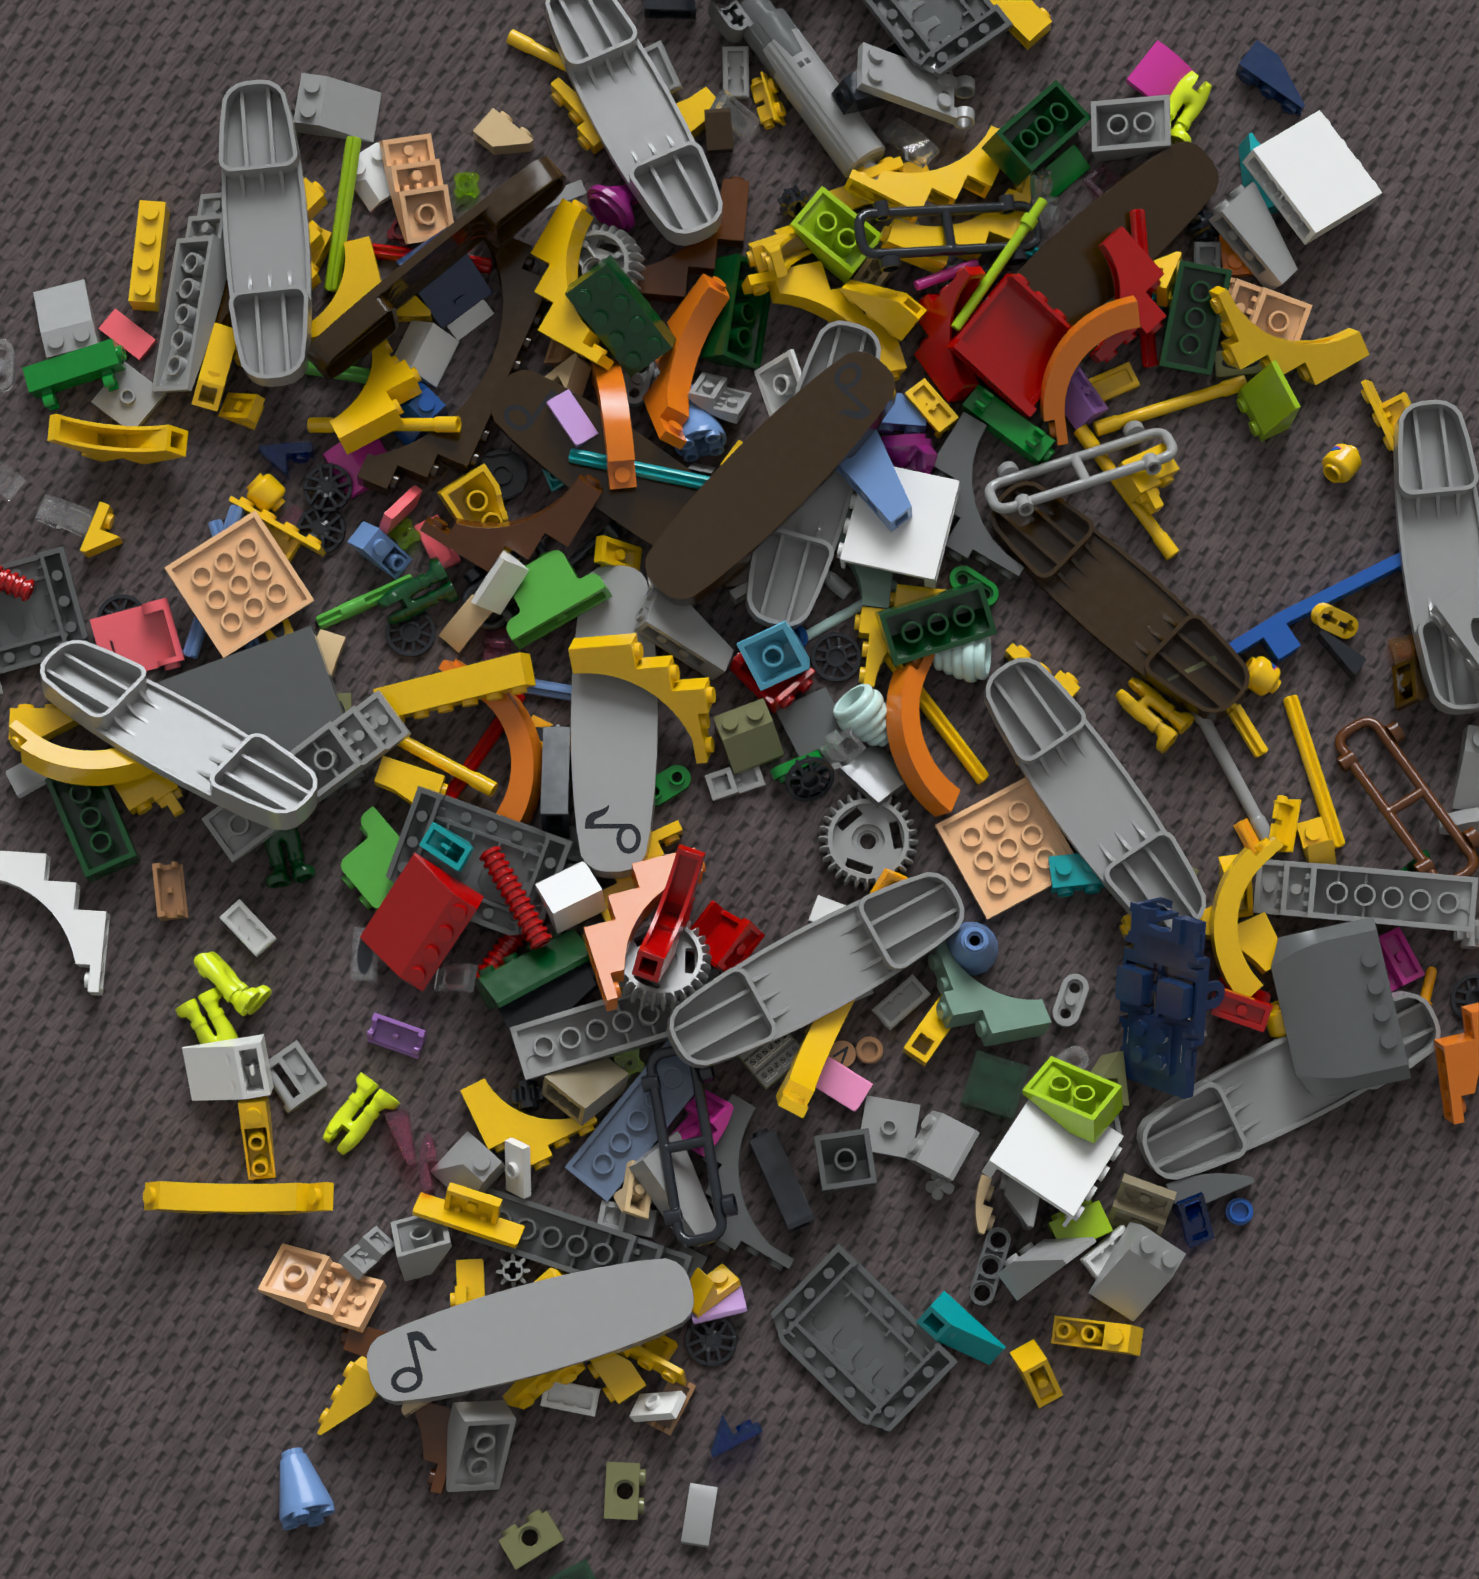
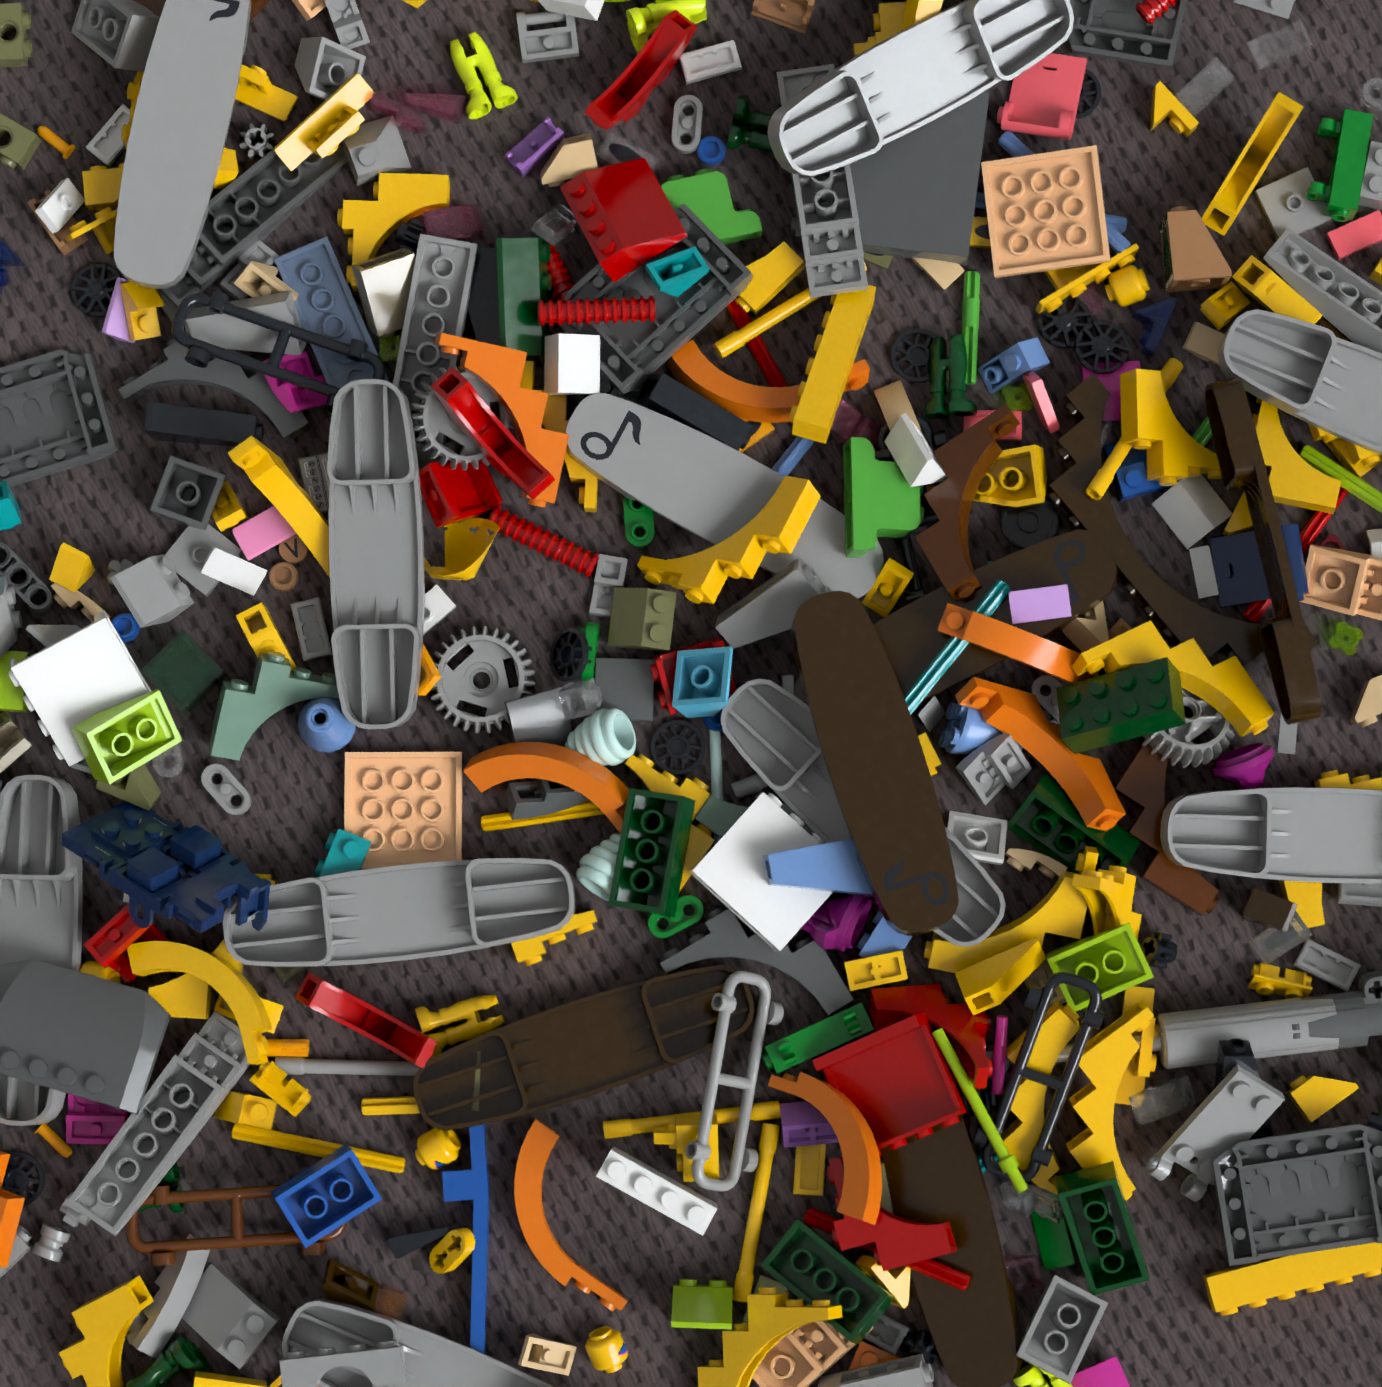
camera: 120 degrees right, 5 degrees up
(214, 454) = (1190, 253): none -> medium nougat slope
(281, 405) = (1204, 342): none -> tan slope
(290, 971) = (648, 70): none -> red arch
(311, 917) = (687, 125): none -> light grey plate
(323, 888) = (711, 150): none -> blue tile
(394, 998) = (569, 160): none -> tan slope
(498, 1067) = (453, 222): none -> clear pink slope
(518, 1168) = (347, 191): white plate -> none
(601, 1449) = (56, 141): none -> light orange piece
(726, 851) = (544, 542): none -> red piece
(769, 908) = (464, 549): none -> yellow piece
(777, 336) = (1026, 859): none -> tan slope
(840, 29) = (1318, 1094): none -> yellow slope
(841, 1119) = (227, 509): none -> yellow slope
(887, 1091) = (233, 571): none -> white slope
(941, 742) = (540, 798): none -> dark grey slope
(961, 1223) = (71, 568): none -> yellow slope
(980, 1156) = (126, 626): none -> blue plate
(1192, 776) = (366, 1019): none -> red arch
(1199, 479) = (657, 1190): none -> white brick
(1244, 592) = (532, 1219): none -> orange arch
(1349, 737) = (326, 1195): none -> blue brick
(1372, 506) = (547, 1354): none -> tan slope

